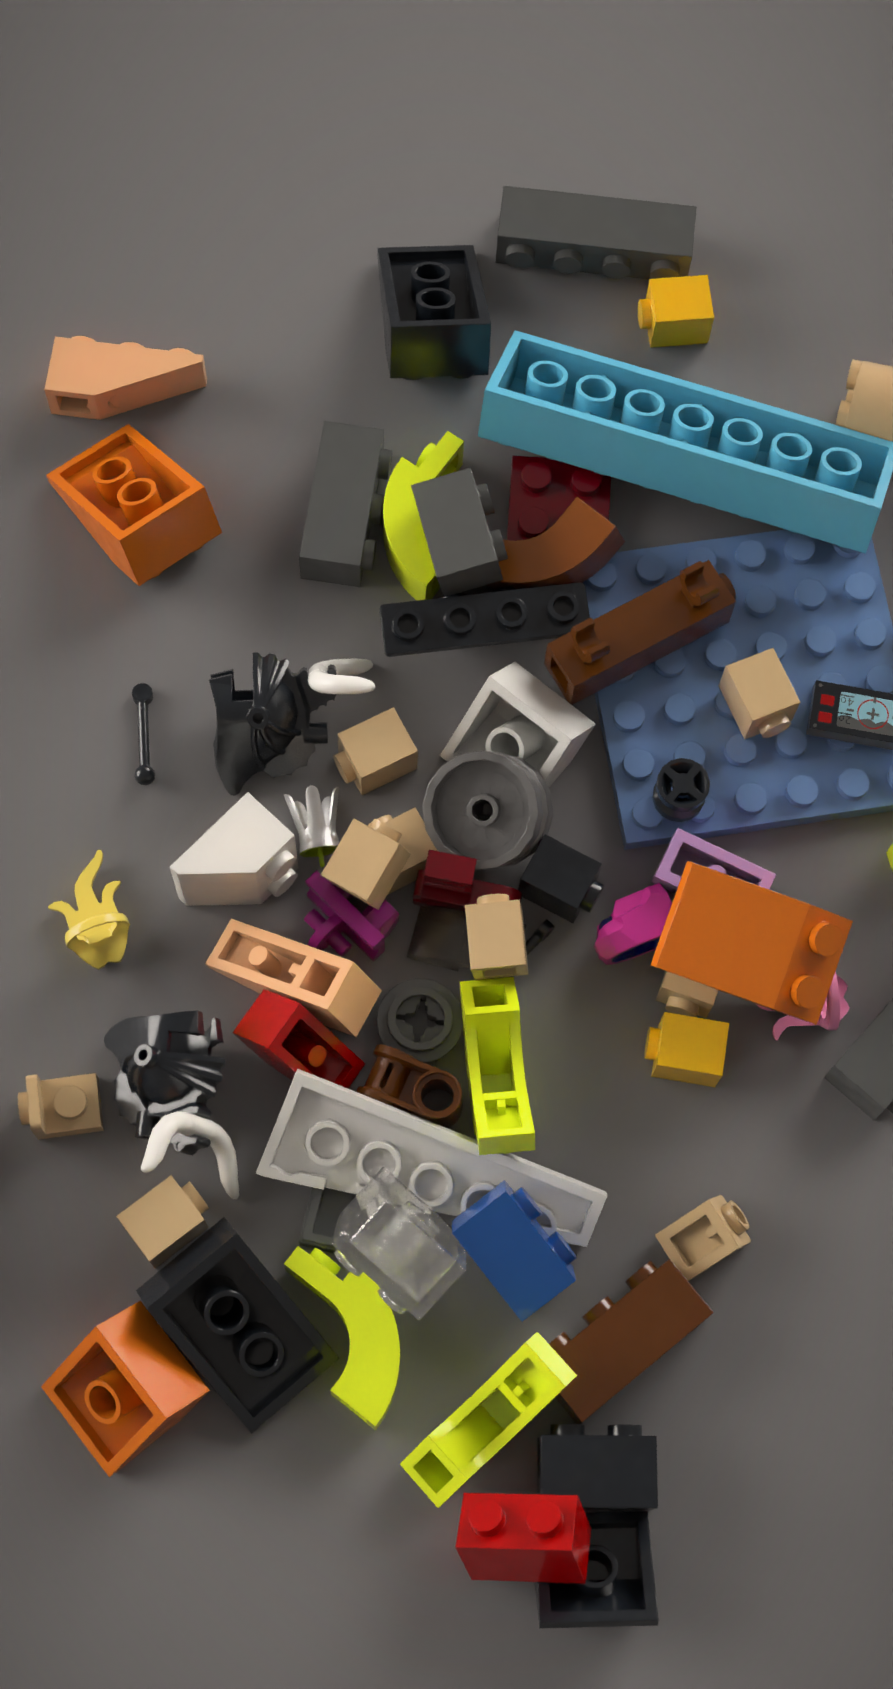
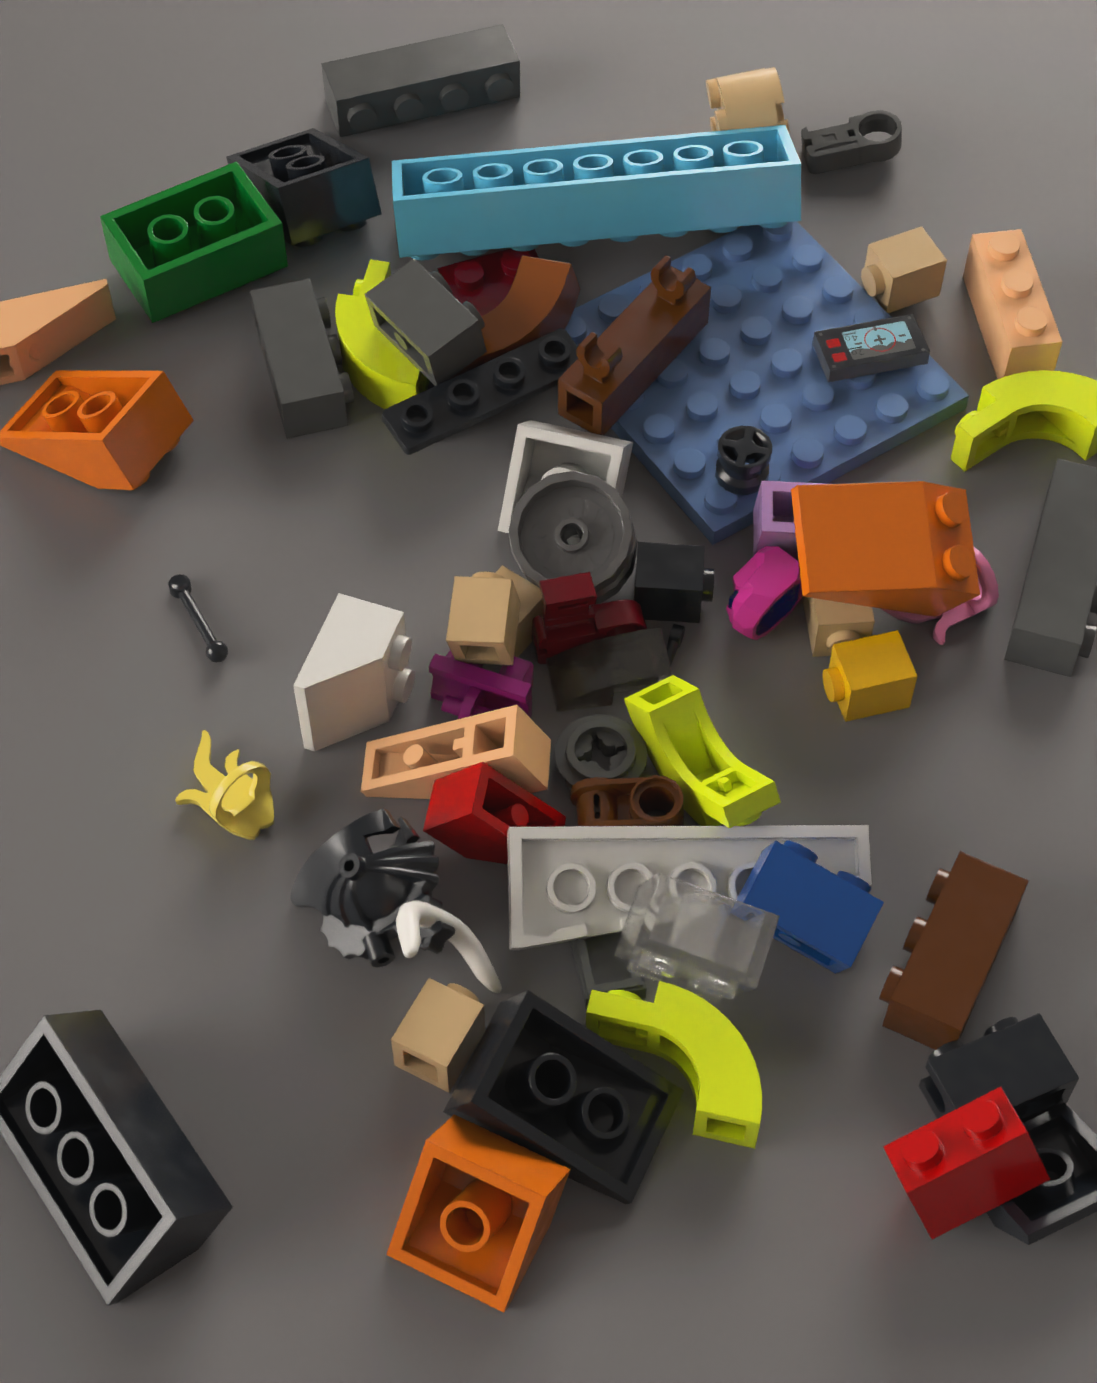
camera: 20 degrees left, 15 degrees down
(61, 1106) = (278, 975): tan bracket -> none
(270, 724) = (325, 543): black helmet -> none
(301, 341) = (194, 241): none -> green brick
(317, 824) = (424, 633): flat silver piece -> none
(375, 752) = (438, 542): tan brick -> none
(488, 1420) = (868, 1069): neon yellow arch -> none
(496, 937) = (643, 639): tan brick -> none
(677, 311) = (527, 111): yellow brick -> none
(705, 1236) = (977, 825): tan bracket -> none
(759, 694) = (771, 358): tan brick -> none

